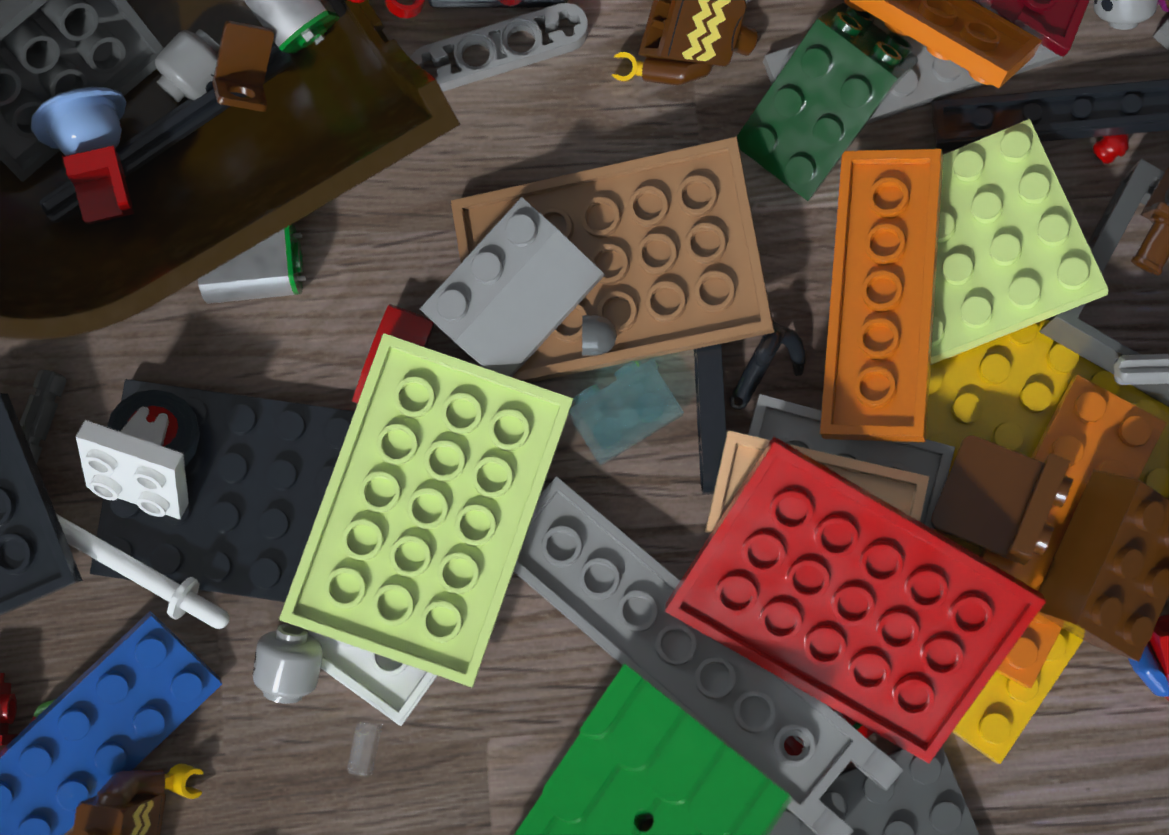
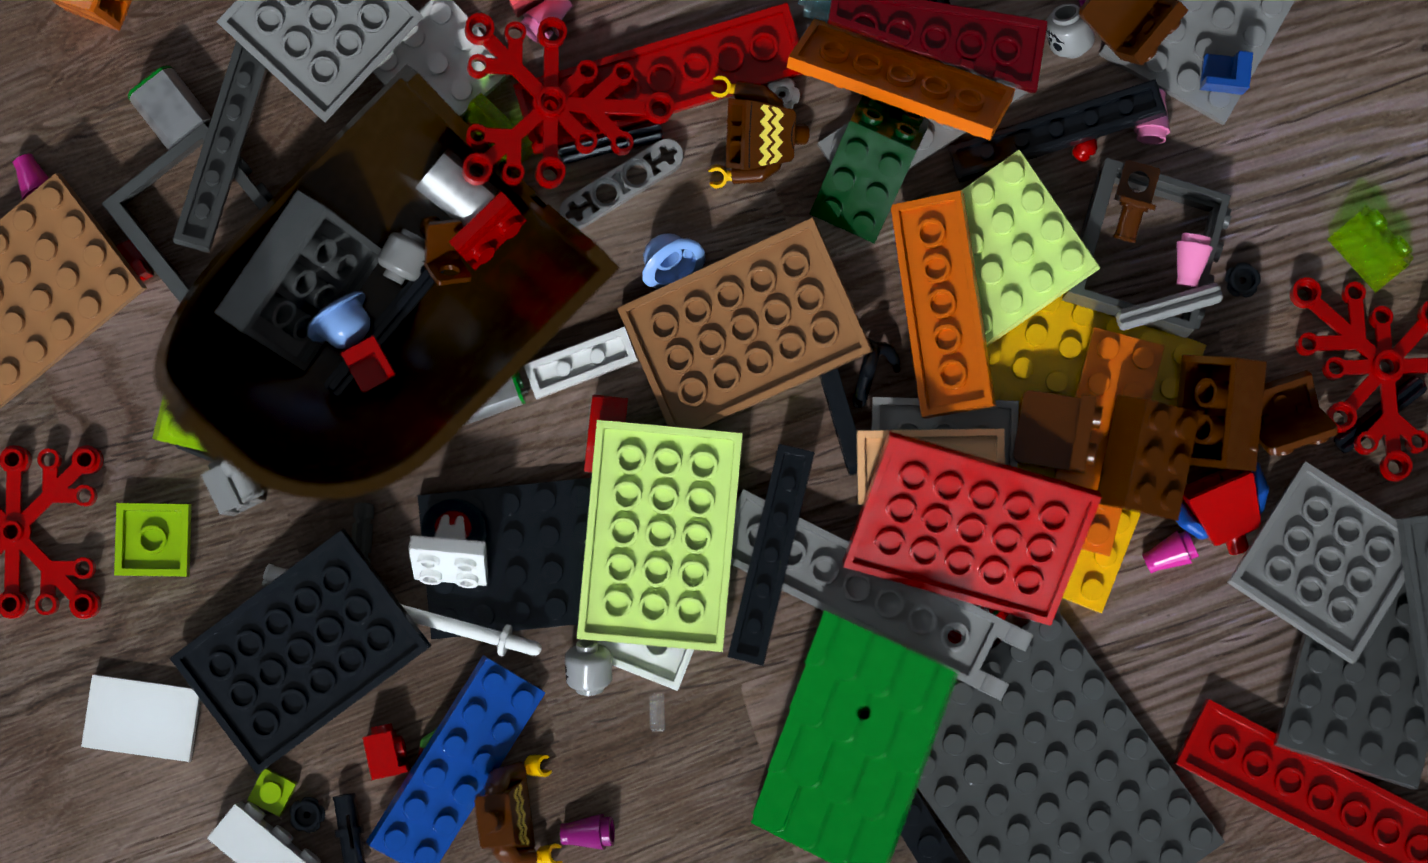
camera: 10 degrees left, 5 degrees up
(305, 55) = (488, 231): none -> red plate
(383, 260) = (580, 363): none -> white plate
(512, 290) = (680, 367): light grey slope -> none
(536, 152) = (670, 259): none -> light blue hat
(570, 573) = (771, 555): none -> black plate
(597, 335) = (748, 384): dark grey hinge -> none
(624, 410) = (785, 424): clear light blue bracket -> none
(1115, 703) = (1171, 552): none -> dark pink cone

